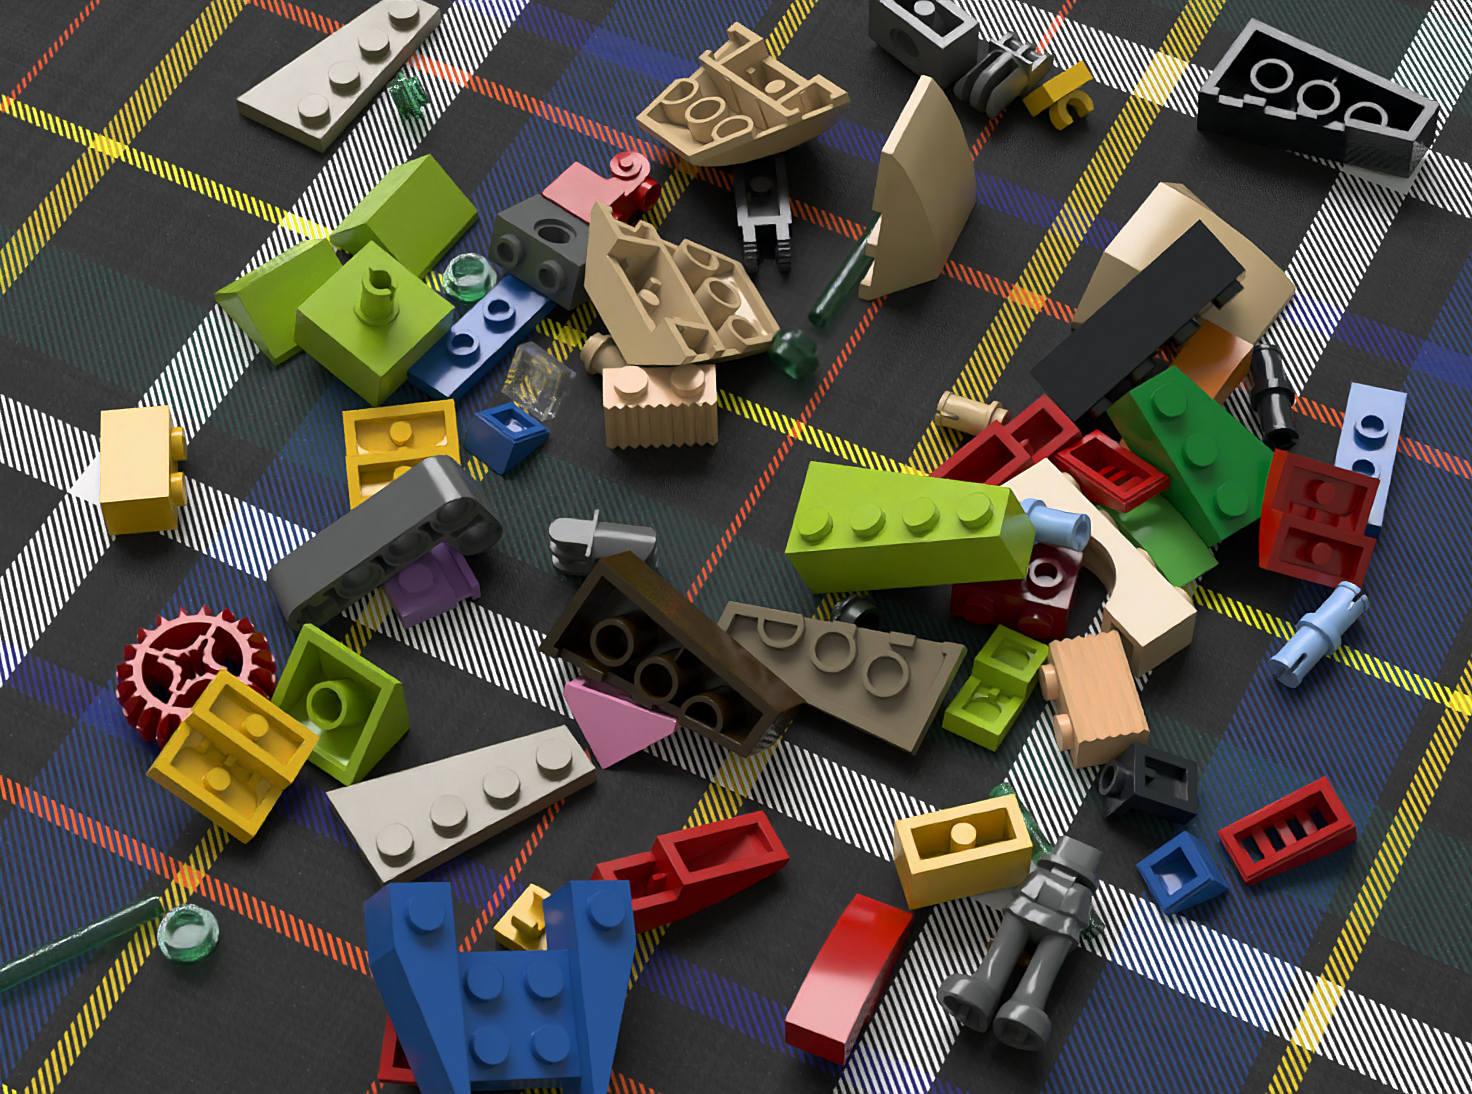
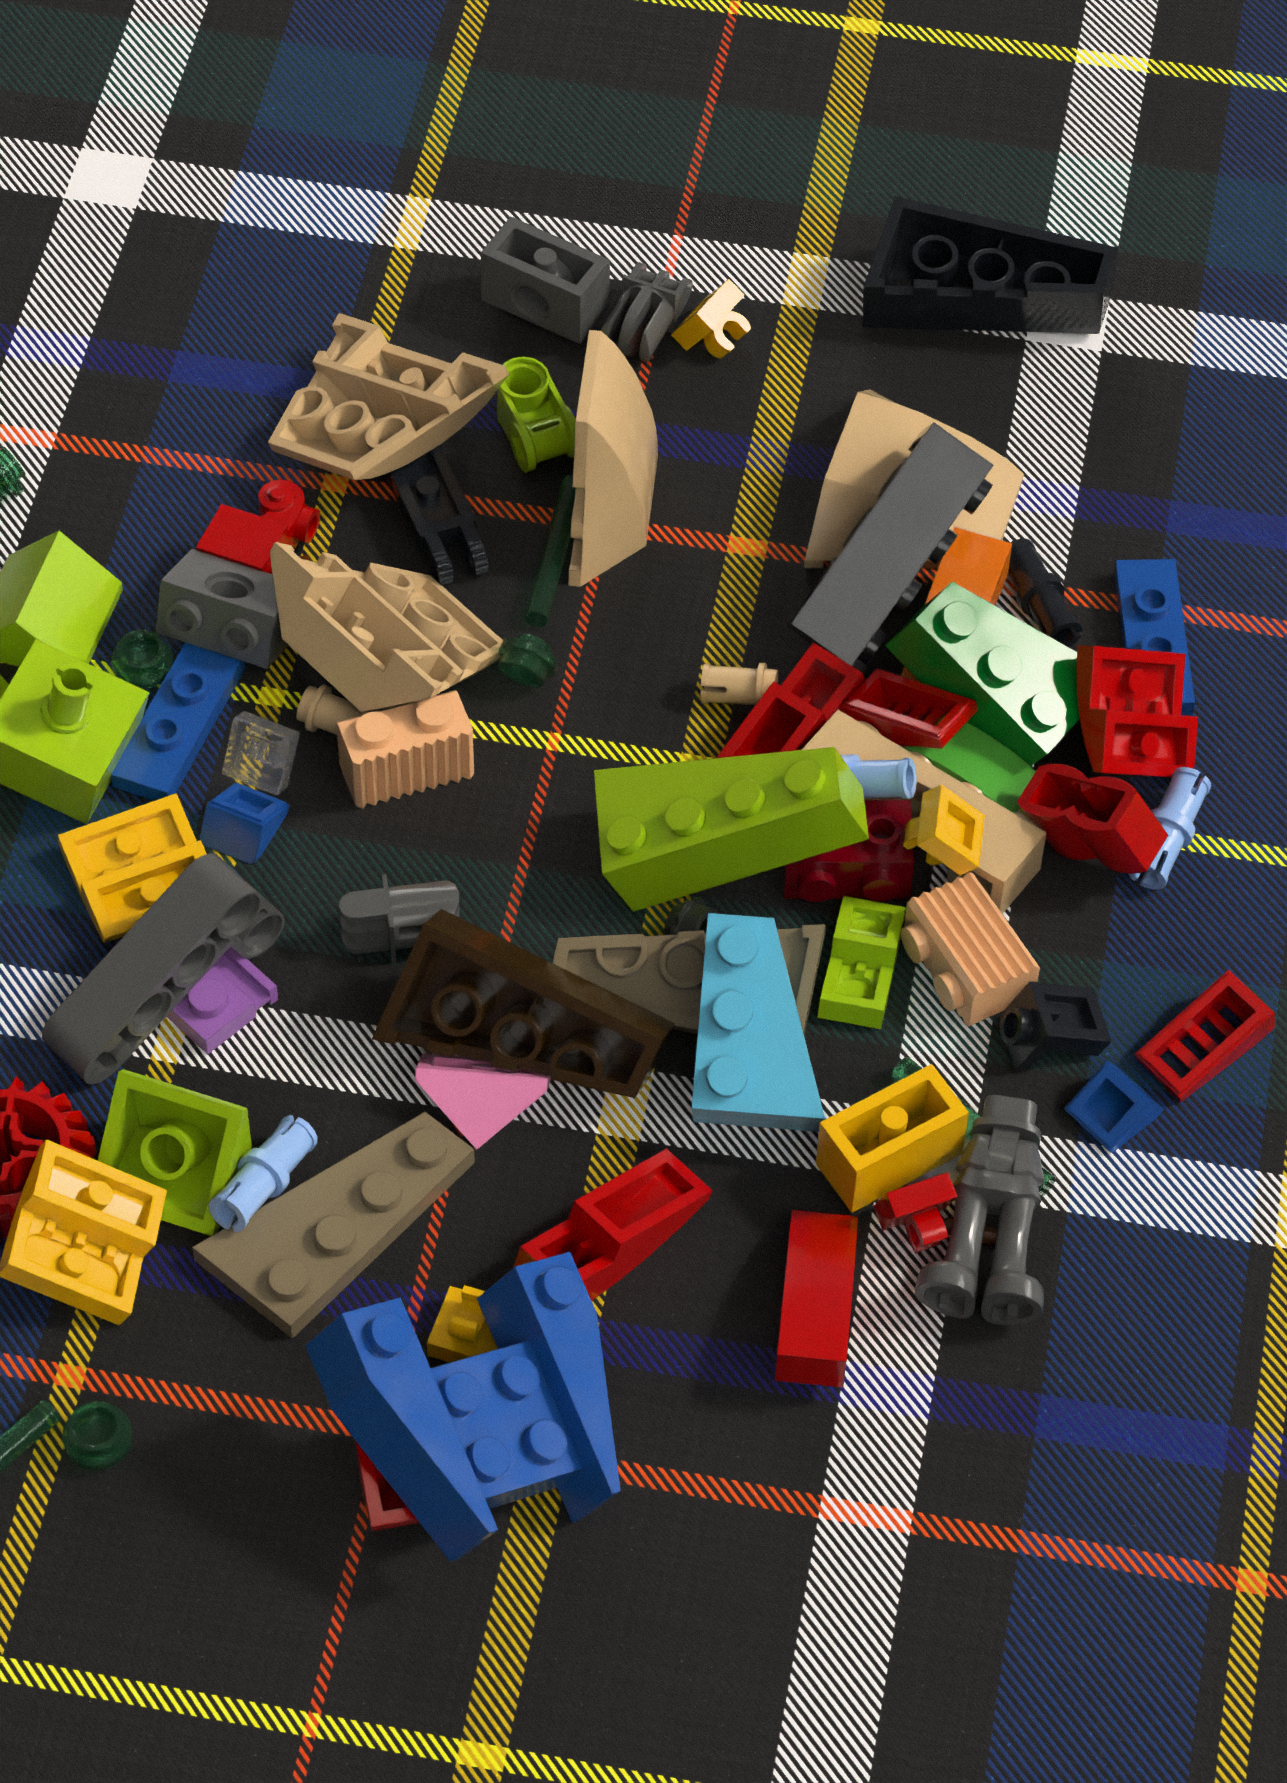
camera: 20 degrees left, 0 degrees up
(406, 743) = (263, 1173): none -> light blue pin
(864, 723) = (750, 1035): none -> medium azure wedge
(870, 123) = (534, 414): none -> lime piece
(967, 920) = (919, 1209): none -> red tile
(1103, 587) = (947, 831): none -> yellow tile
(1243, 608) = (1093, 818): none -> red brick

